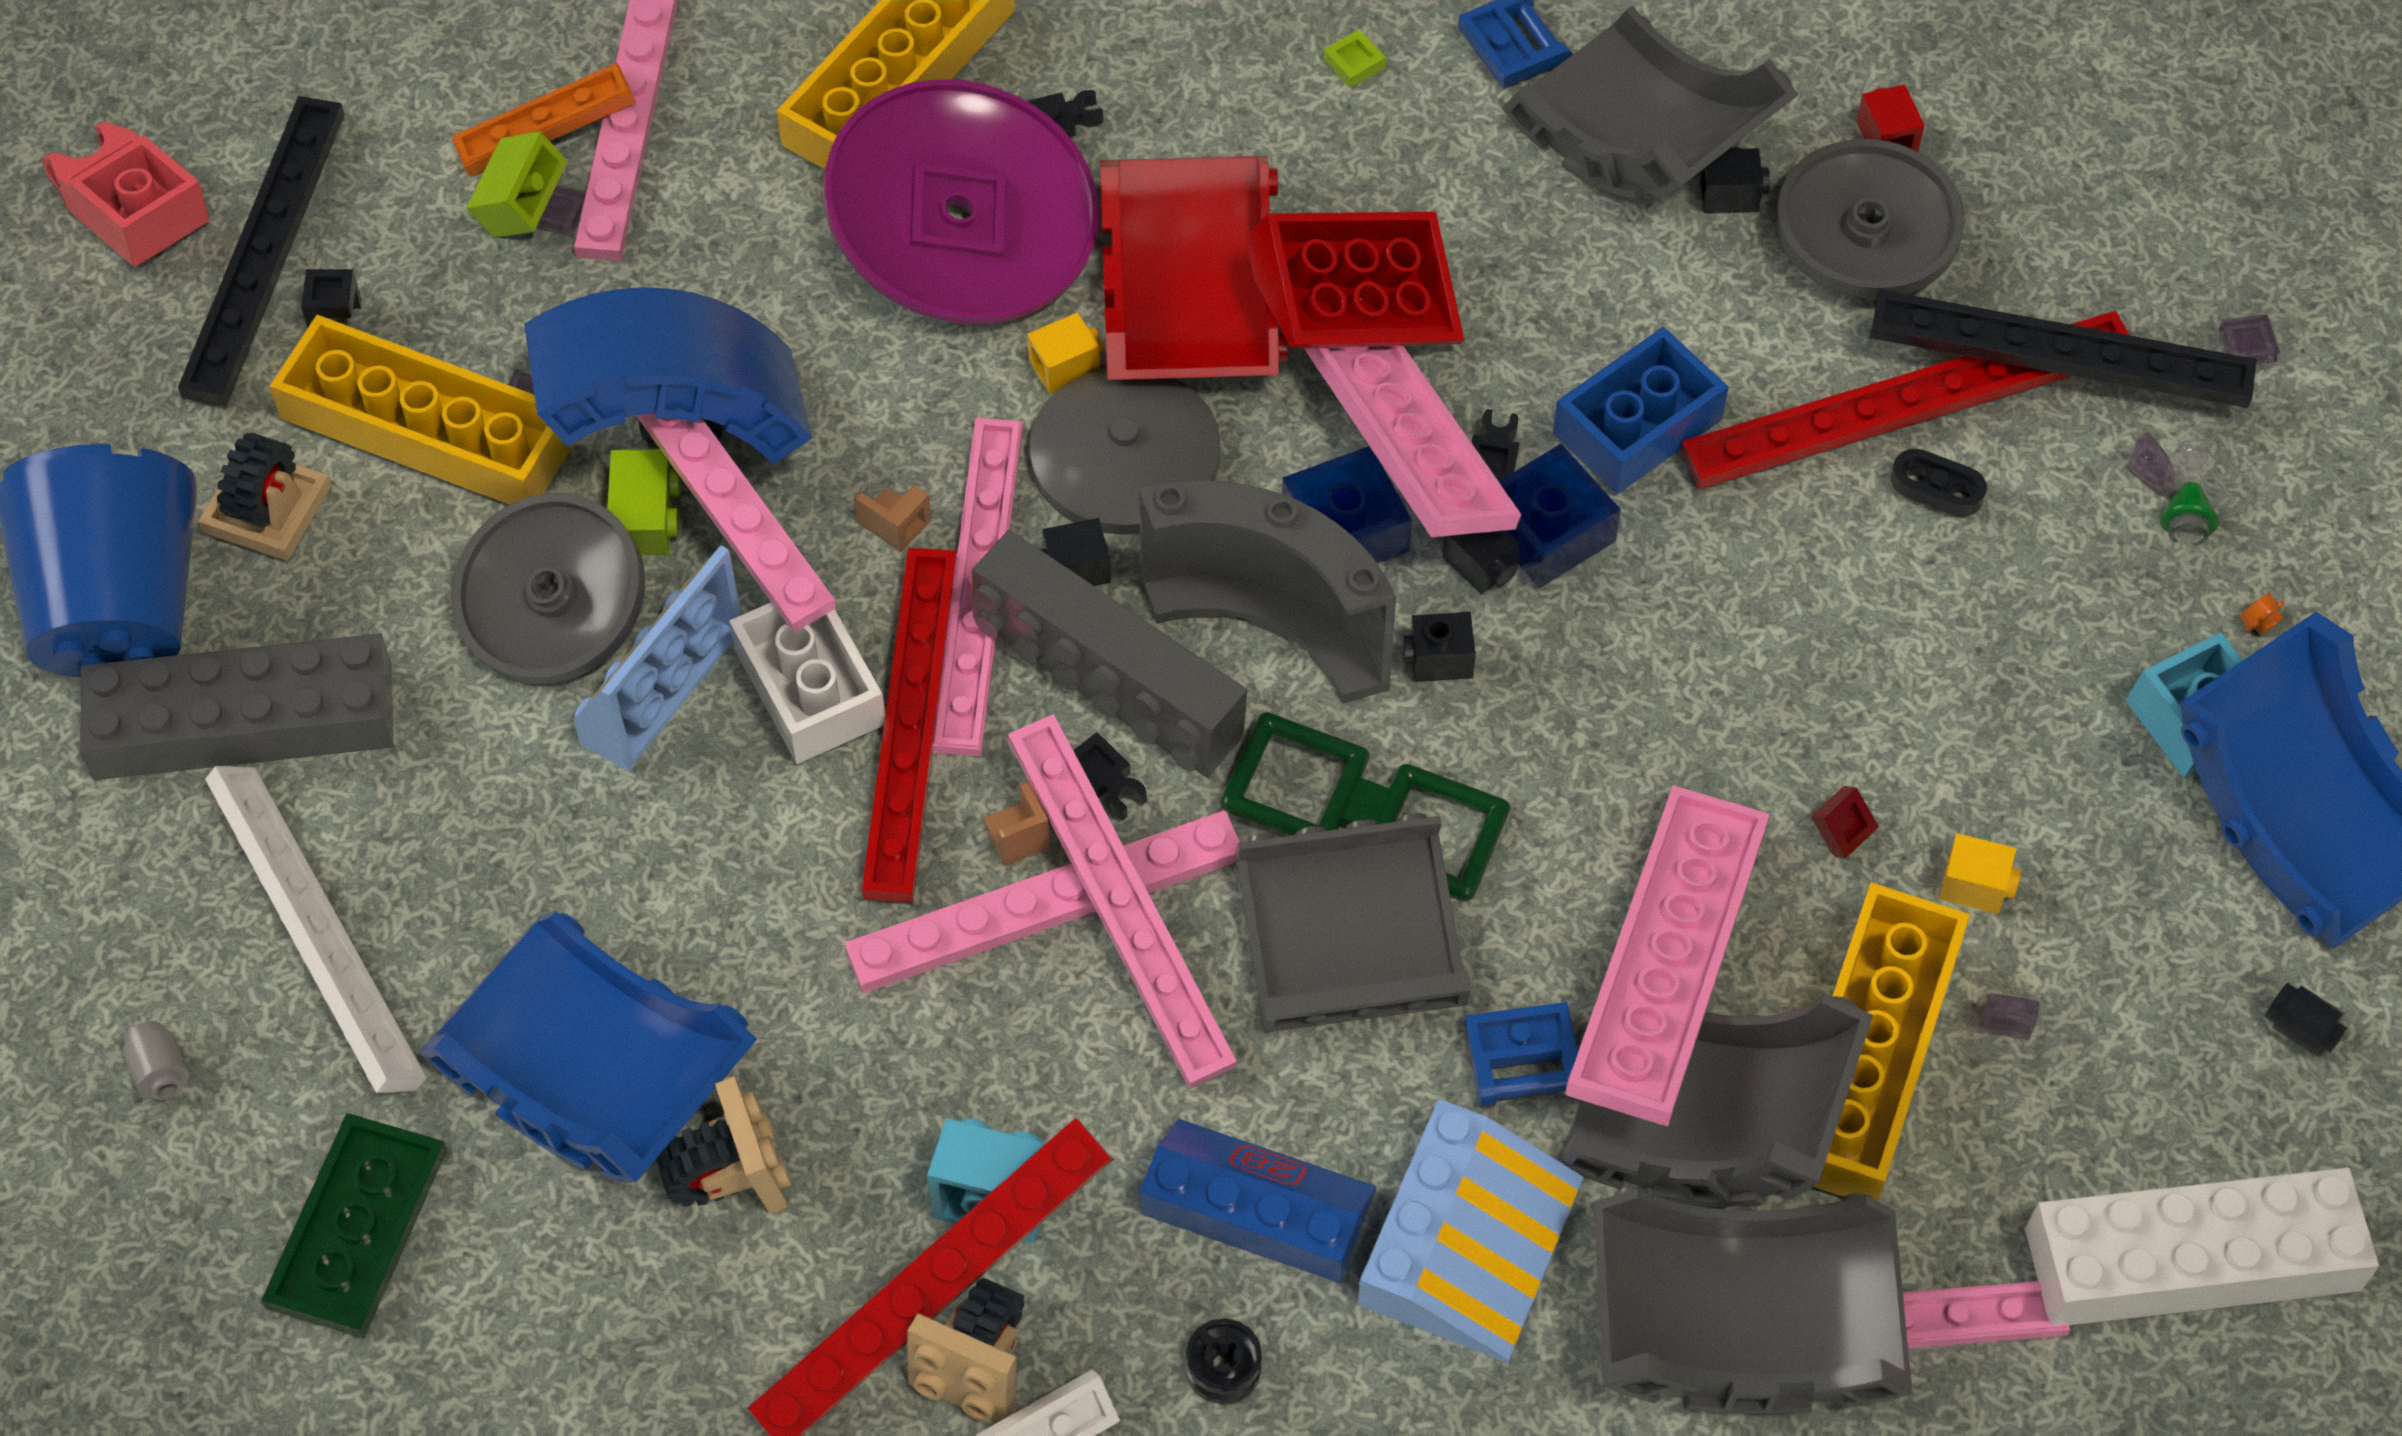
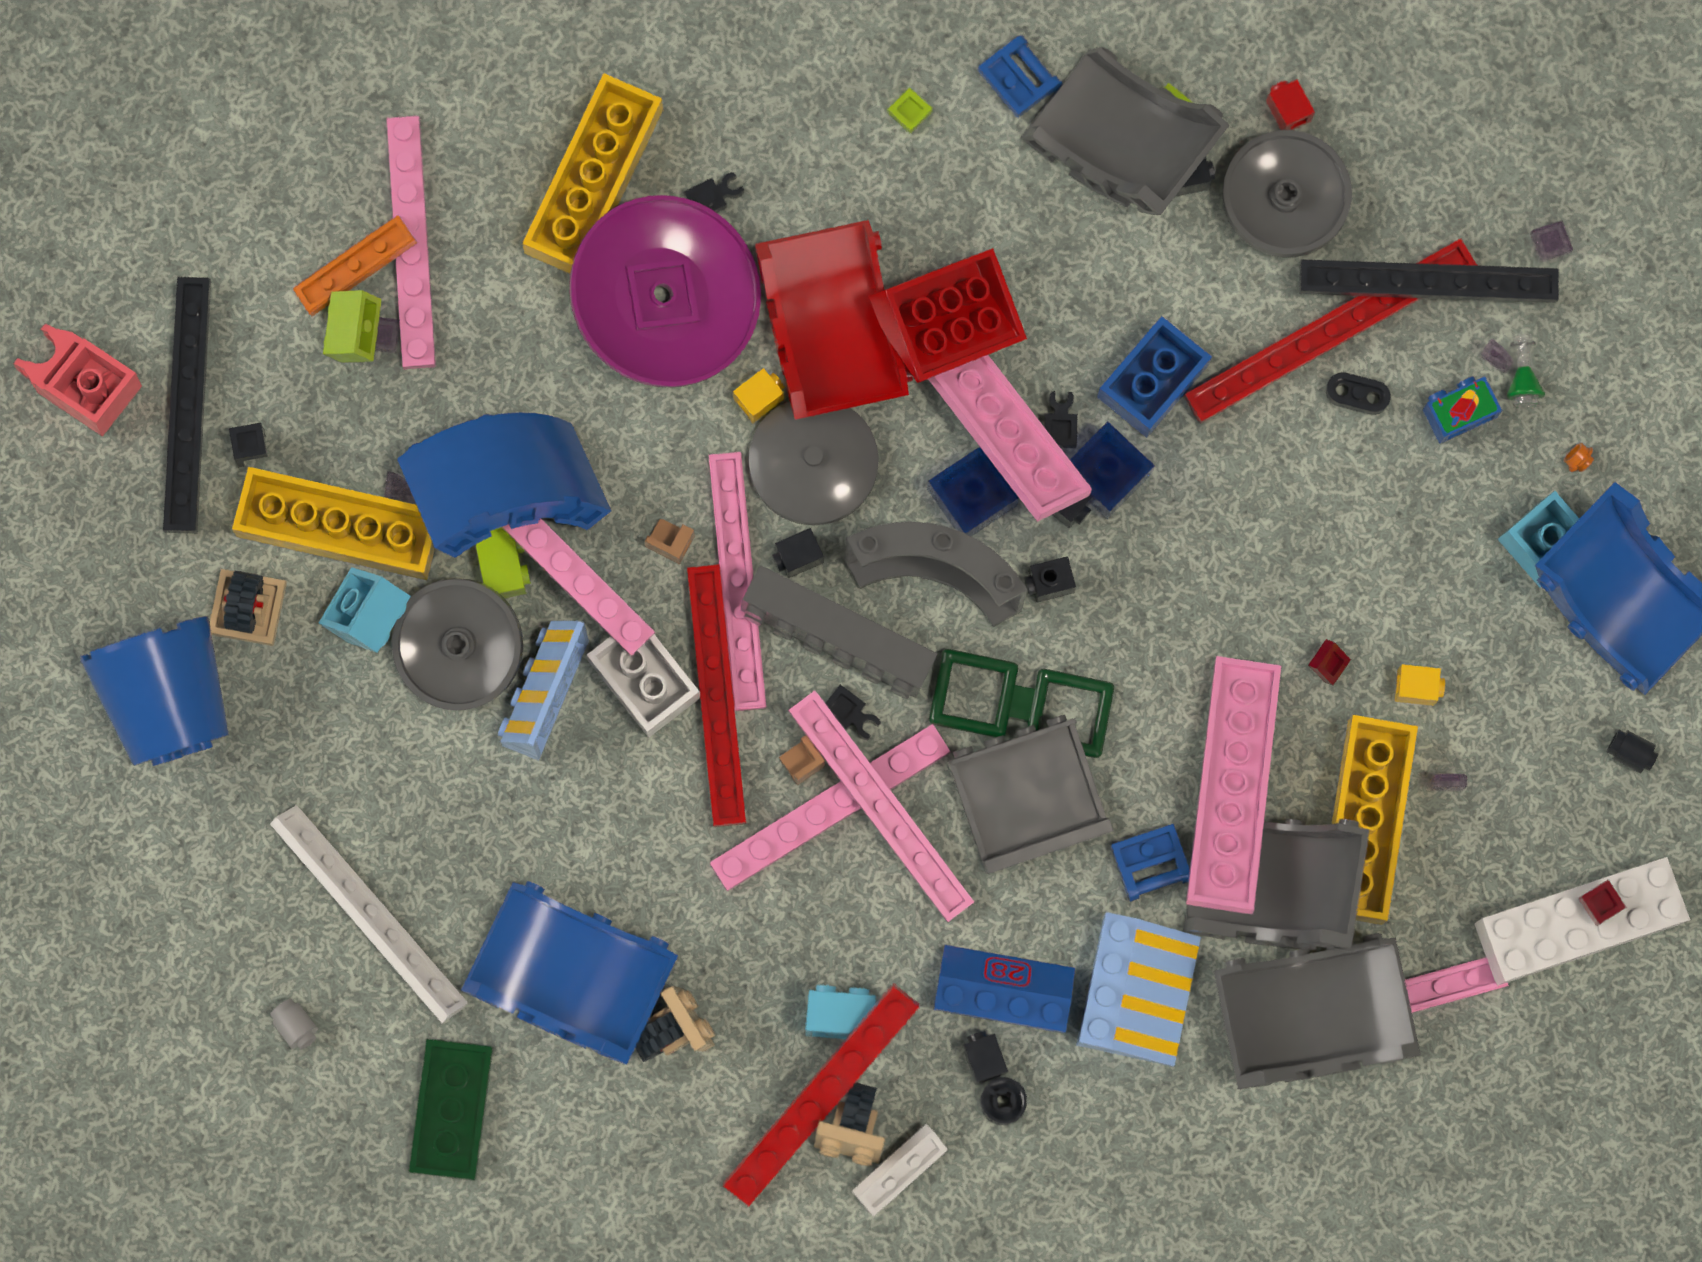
camera: 15 degrees left, 20 degrees up
(236, 706) = (274, 766): dark grey brick -> none
(427, 519) = (365, 609): none -> medium azure brick
(1205, 1287) = (984, 1057): none -> black brick
(2091, 523) = (1461, 409): none -> brick
(2237, 1204) = (1602, 902): none -> dark red plate

